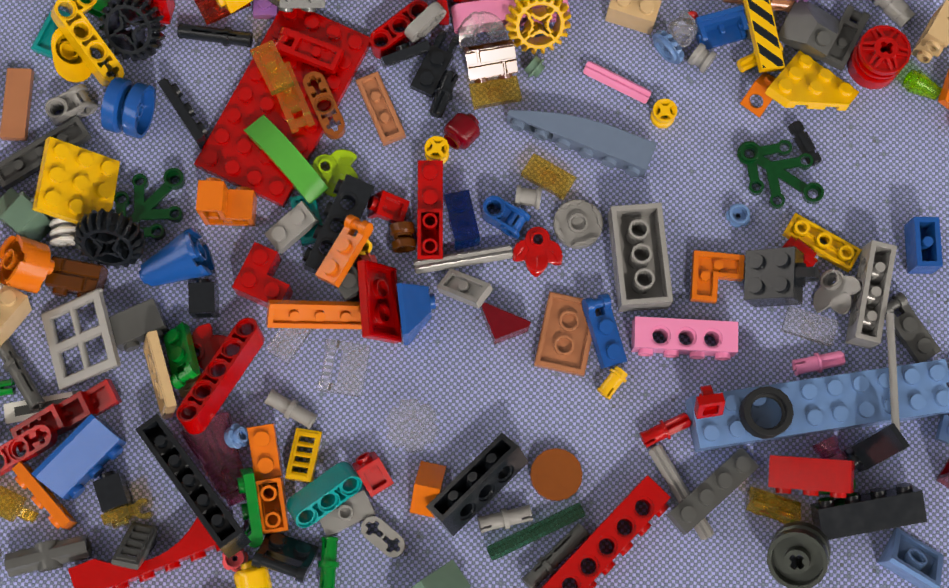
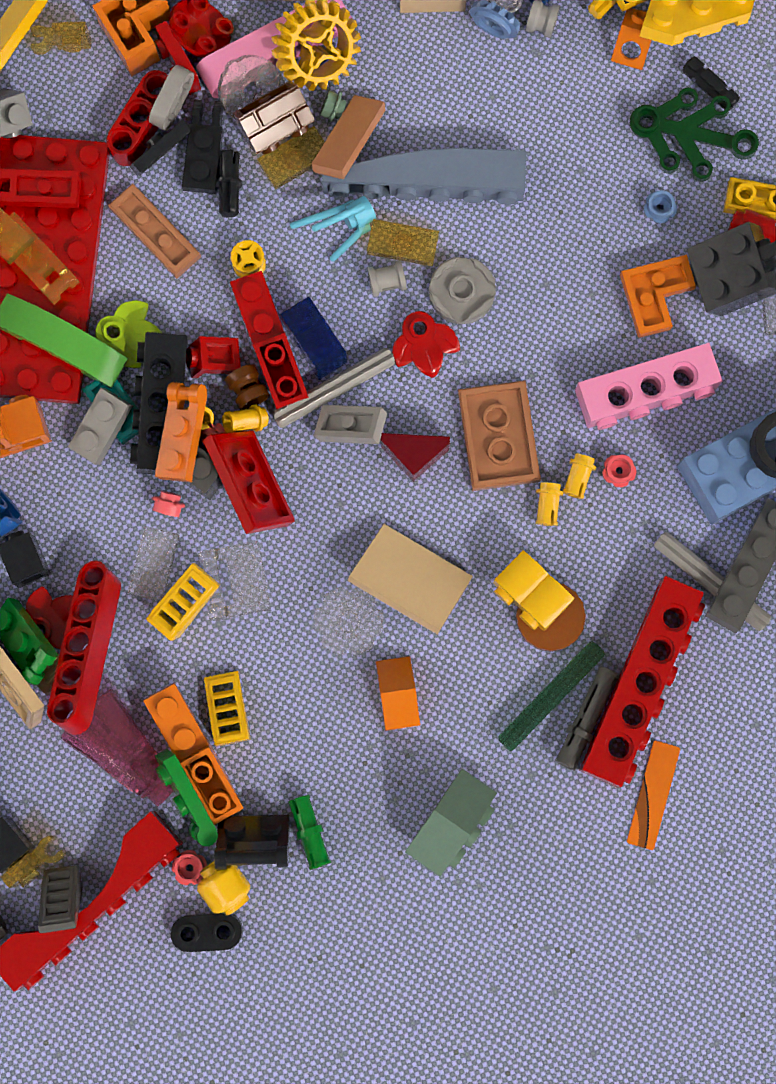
camera: 15 degrees left, 5 degrees up
(193, 486) = (104, 798): black brick -> none
(236, 436) = (133, 716): medium blue plate -> none
(256, 277) = (83, 513): red brick -> none
(282, 378) = (162, 622): none -> yellow slope
(291, 409) = (188, 656): light grey pin -> none
(313, 314) = (172, 527): orange plate -> none
(317, 295) = (168, 504): none -> coral plate
(323, 87) = (72, 230): dark orange beam -> none
(323, 494) = (271, 748): teal beam -> none
(347, 514) = (306, 761): light grey plate -> none
(372, 473) = (321, 698): red bracket -> none
(378, 541) = (360, 780): light grey beam -> none
(391, 258) = (252, 418): none -> yellow pin
(414, 308) = (297, 474): blue slope -> none
(461, 131) = (271, 223): dark red head -> none
(466, 411) = (410, 578): none -> tan tile
(477, 484) = (458, 664): black brick -> none
(505, 518) = (507, 694): light grey pin -> none
(506, 217) = (368, 315): blue piece -> none
(522, 145) = (355, 213): none -> medium azure plant
(537, 91) = (348, 137): none -> nougat tile
(549, 451) = (532, 591): none -> yellow brick
(583, 394) = (548, 503): none -> yellow pin
(604, 331) = (545, 415): blue plate -> none
(617, 82) = (445, 88): bright pink axle -> none
(640, 257) = (557, 304): light grey brick -> none
(642, 382) = (619, 461): none -> coral plate
(665, 429) = (665, 511): red axle -> none
(666, 108) = (519, 100): yellow wheel -> none
(708, 403) = (711, 459): red tile -> none

